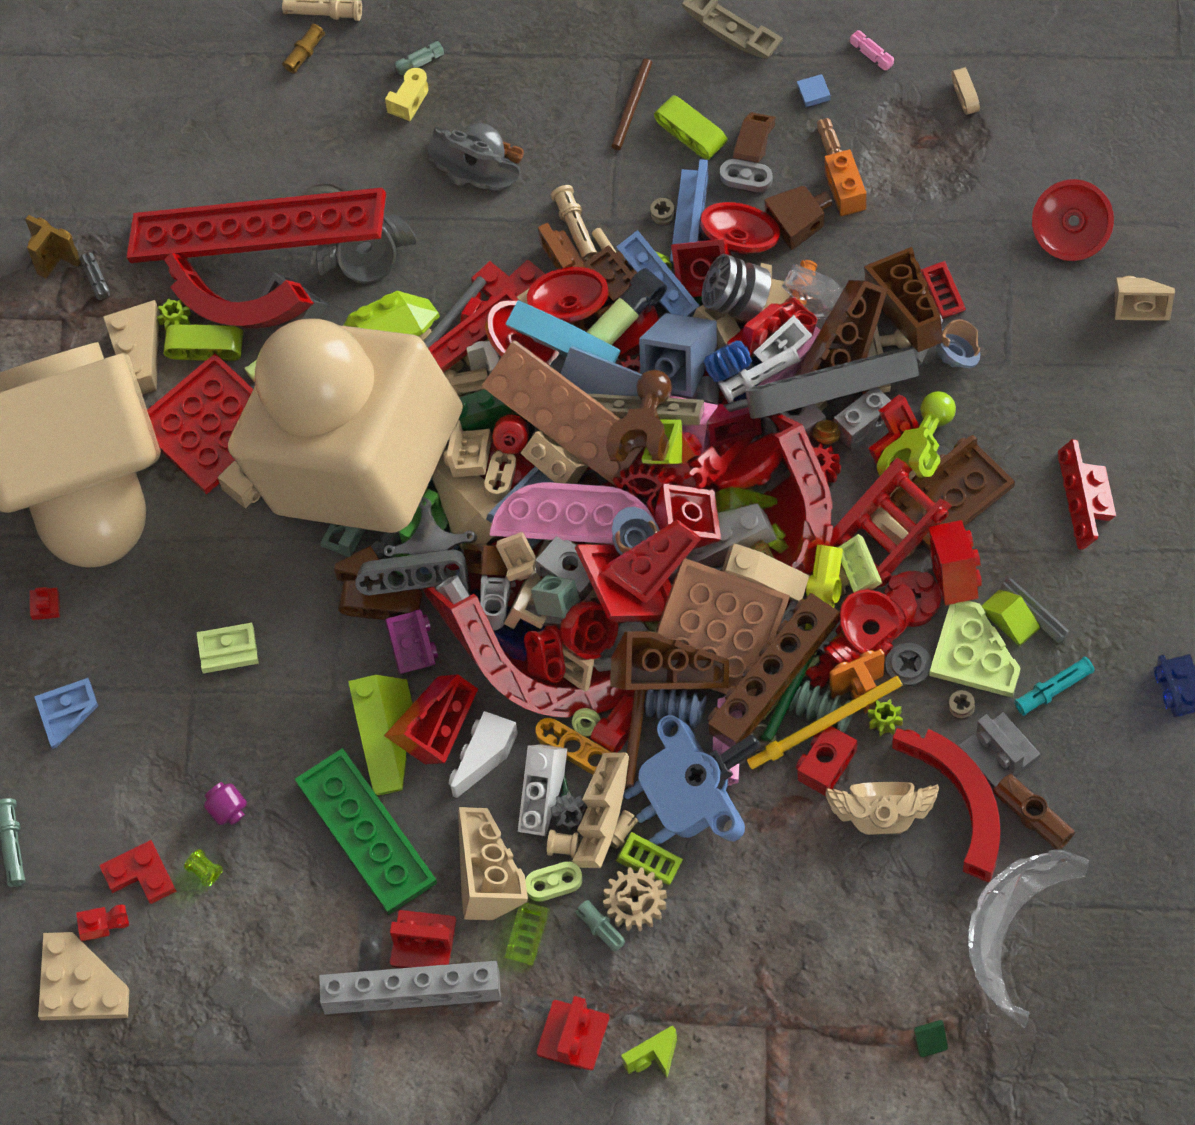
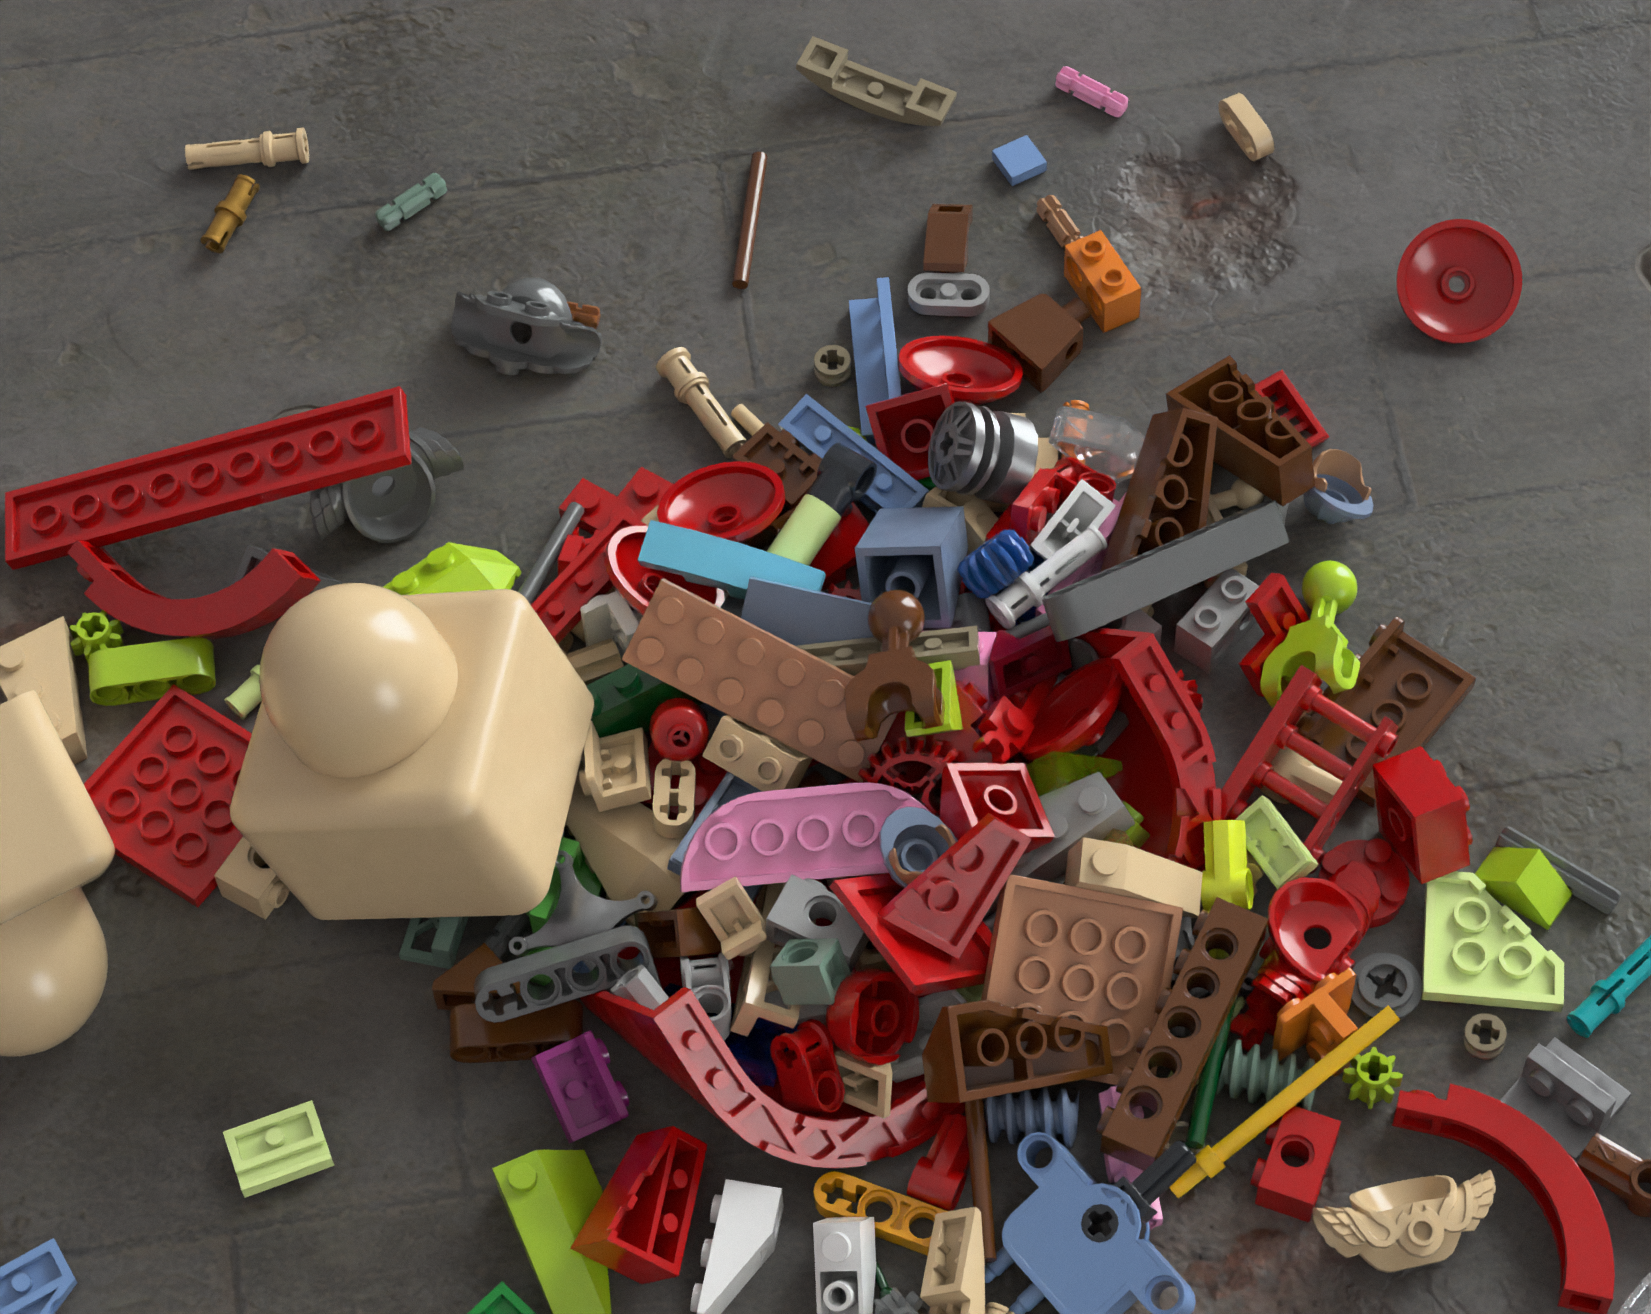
camera: 15 degrees left, 5 degrees down
(409, 96) = (408, 256): light yellow leg -> none
(559, 248) = (685, 441): dark orange bracket -> none
(580, 726) = (896, 1179): yellowish green plate -> none
(690, 127) = (847, 238): lime beam -> none
(826, 432) = (1174, 647): pearl gold plate -> none
(1086, 493) = (1586, 678): red bracket -> none
(1142, 299) = (1593, 379): tan slope -> none

